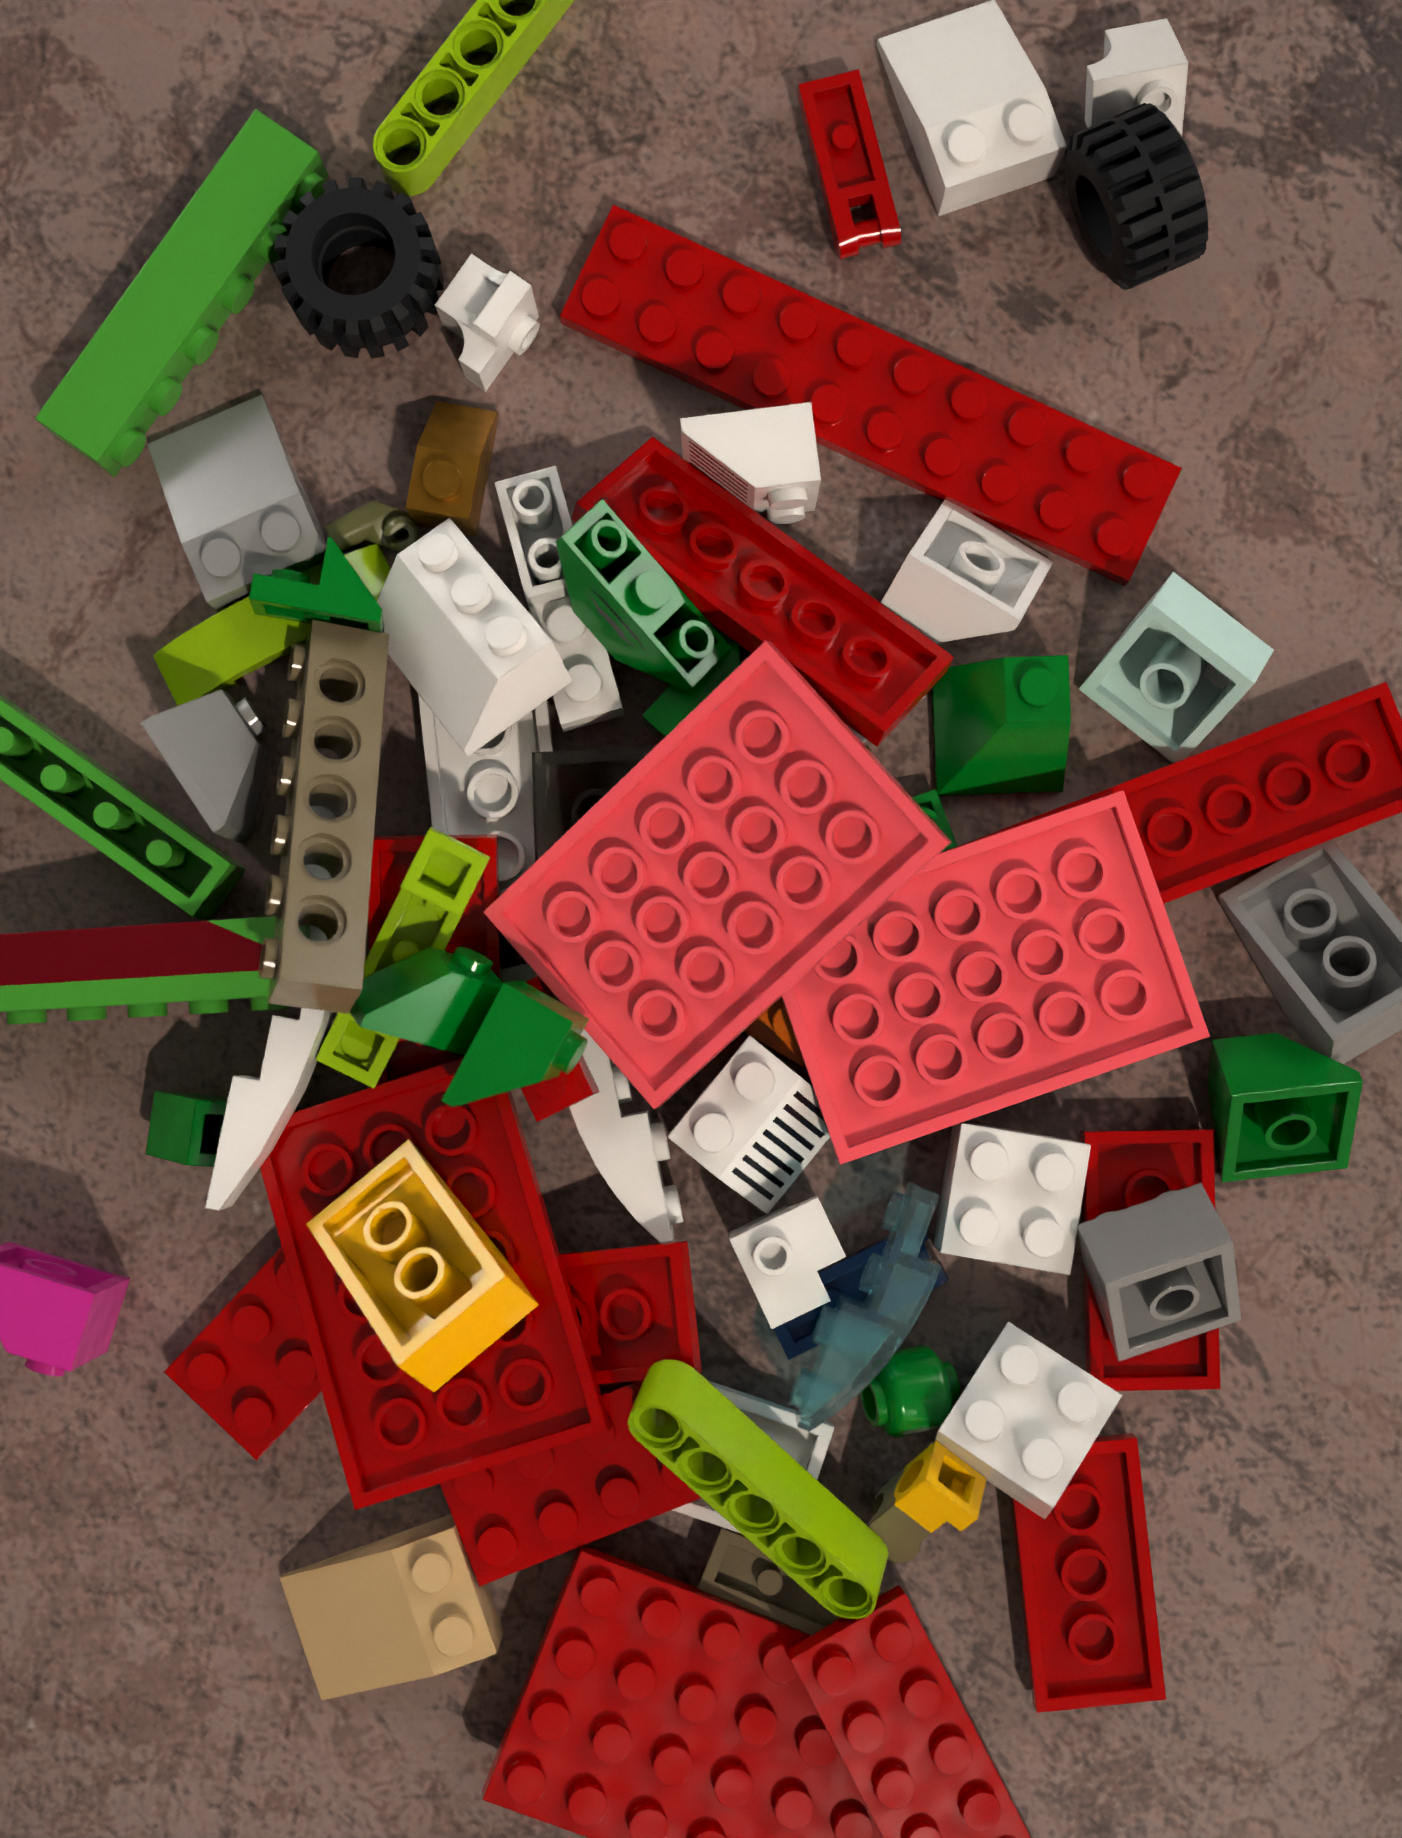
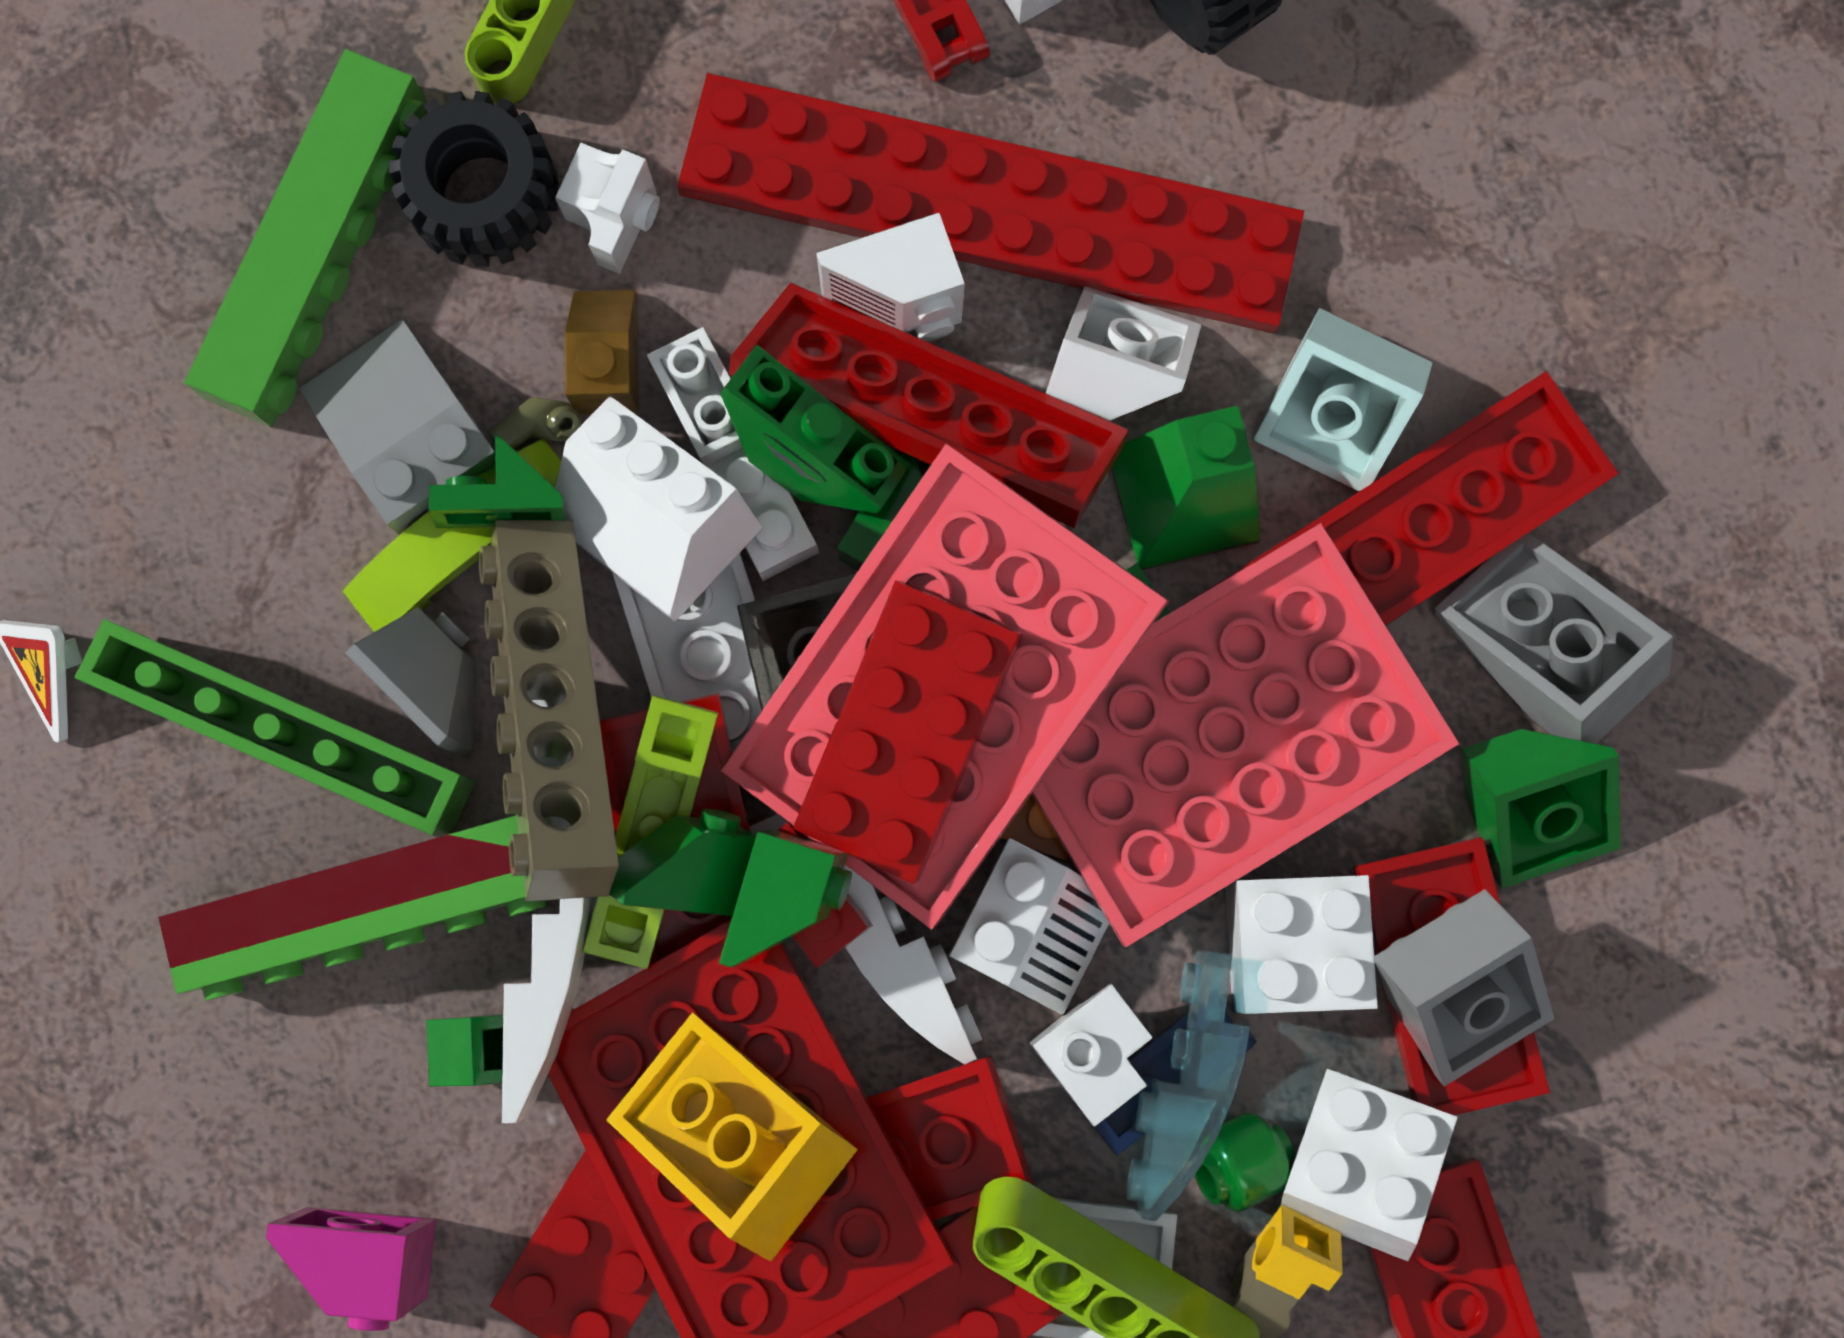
camera: 20 degrees left, 5 degrees down
(669, 914) = (907, 731): none -> red plate

